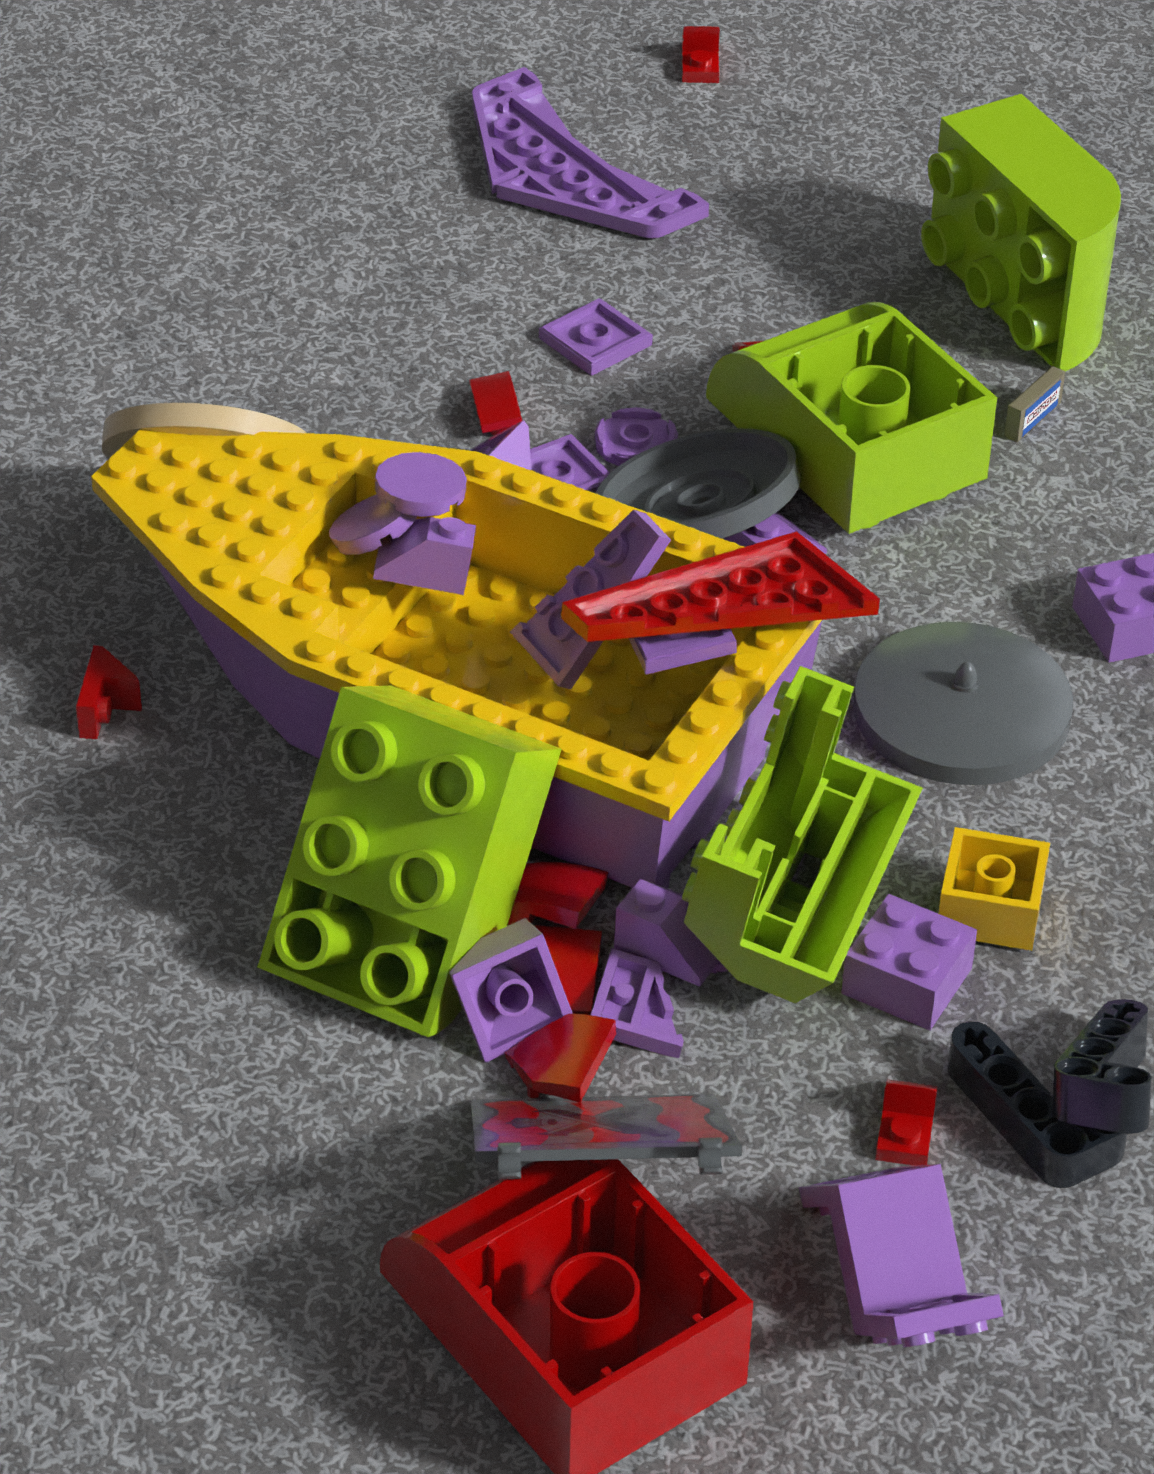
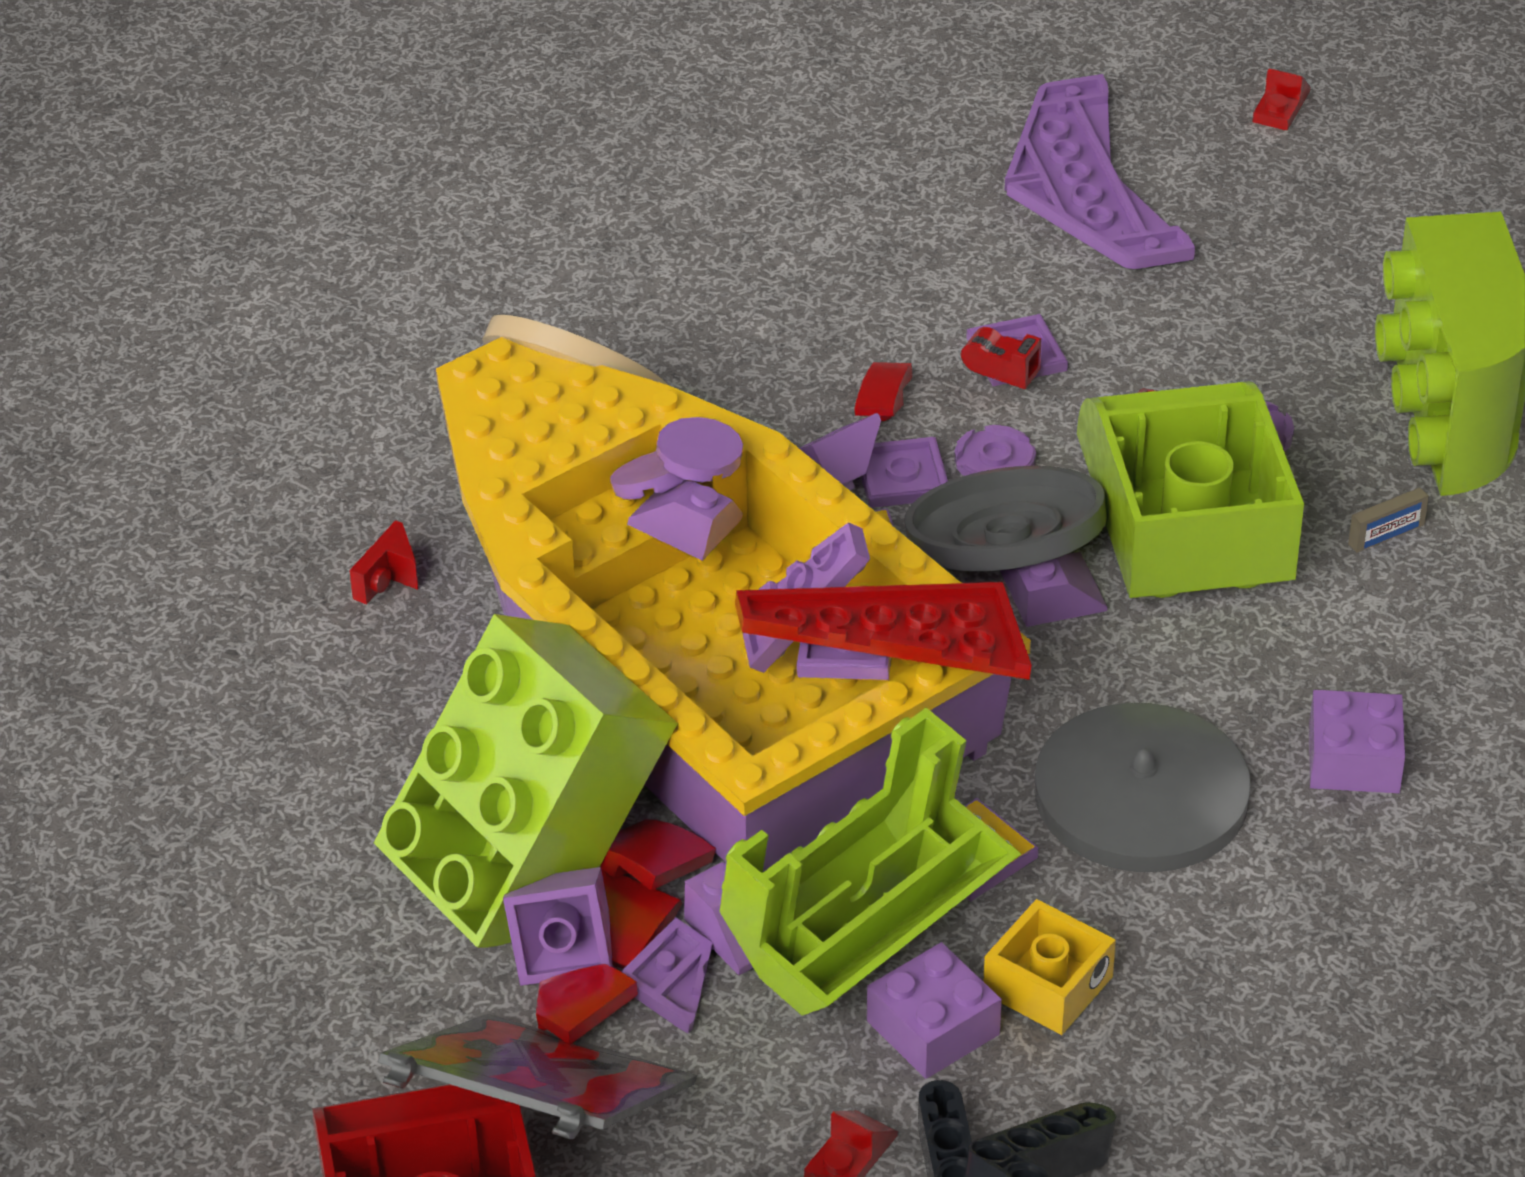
camera: 25 degrees right, 0 degrees up
(596, 343) = (1003, 357): none -> red leg

